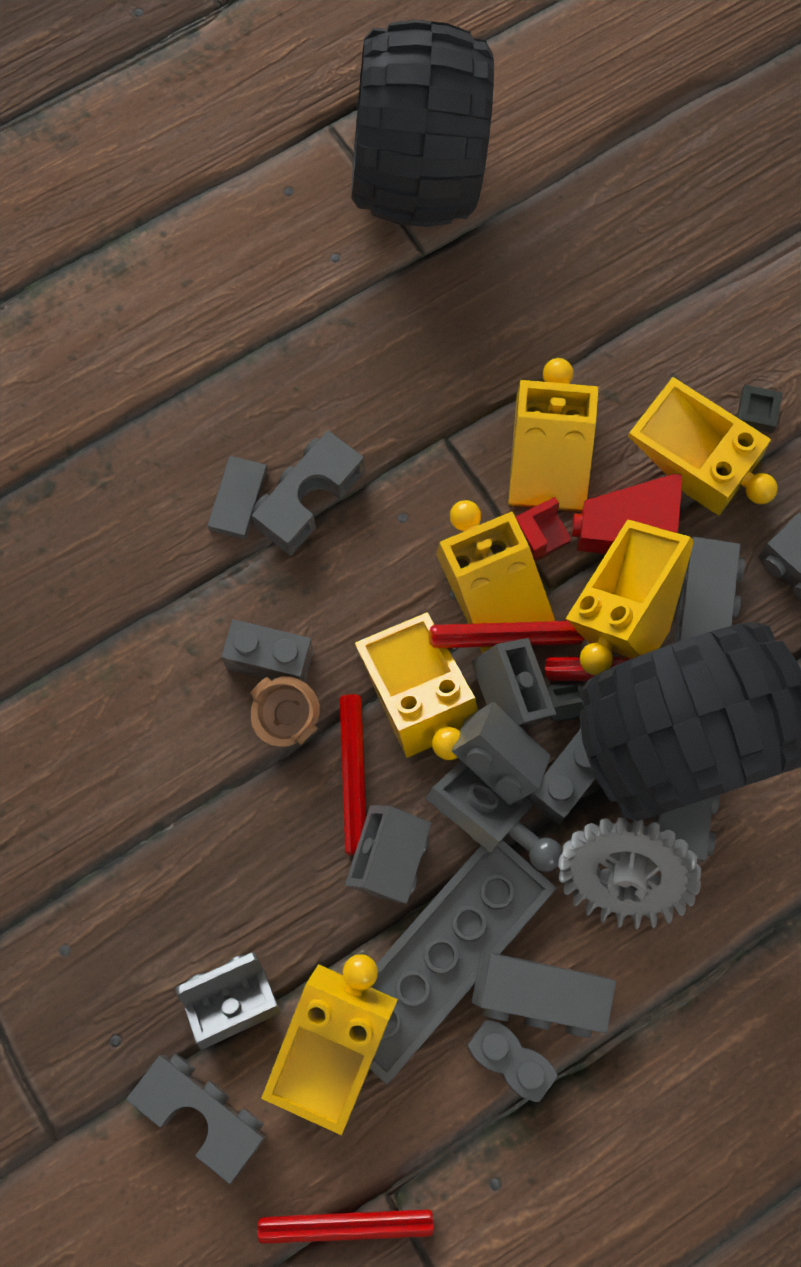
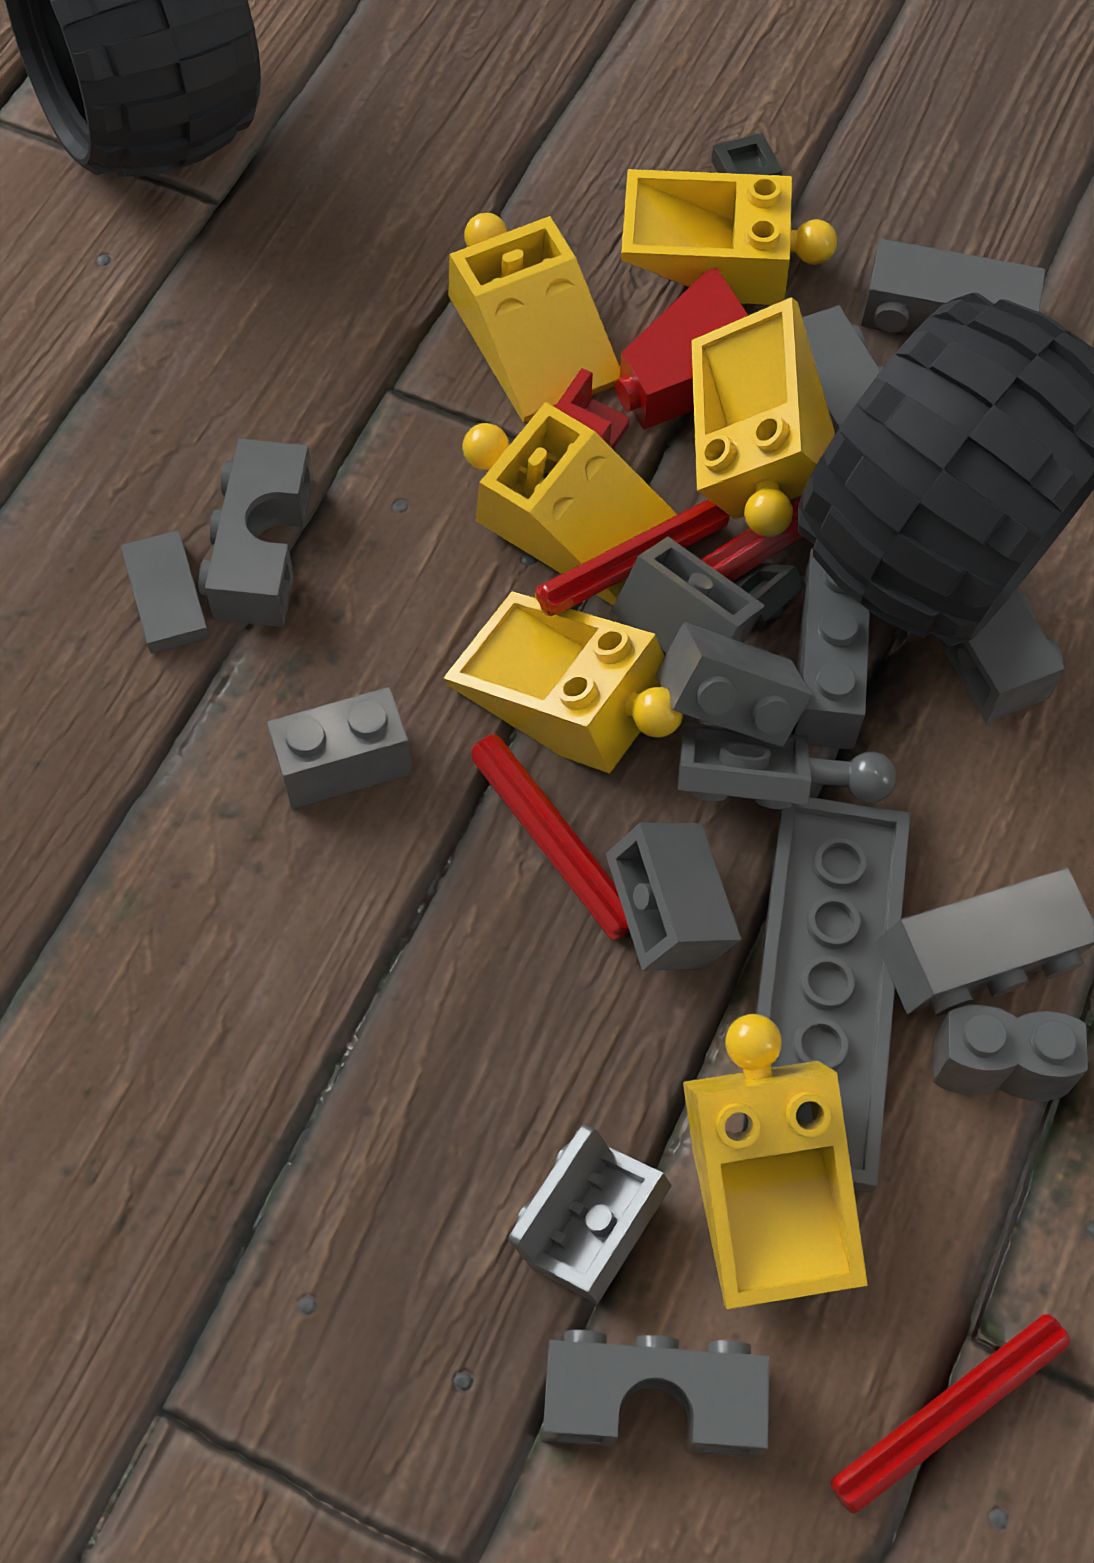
camera: 35 degrees left, 10 degrees down
(284, 711) = (413, 800): medium nougat cap -> none
(630, 877) = (991, 729): light grey gear -> none

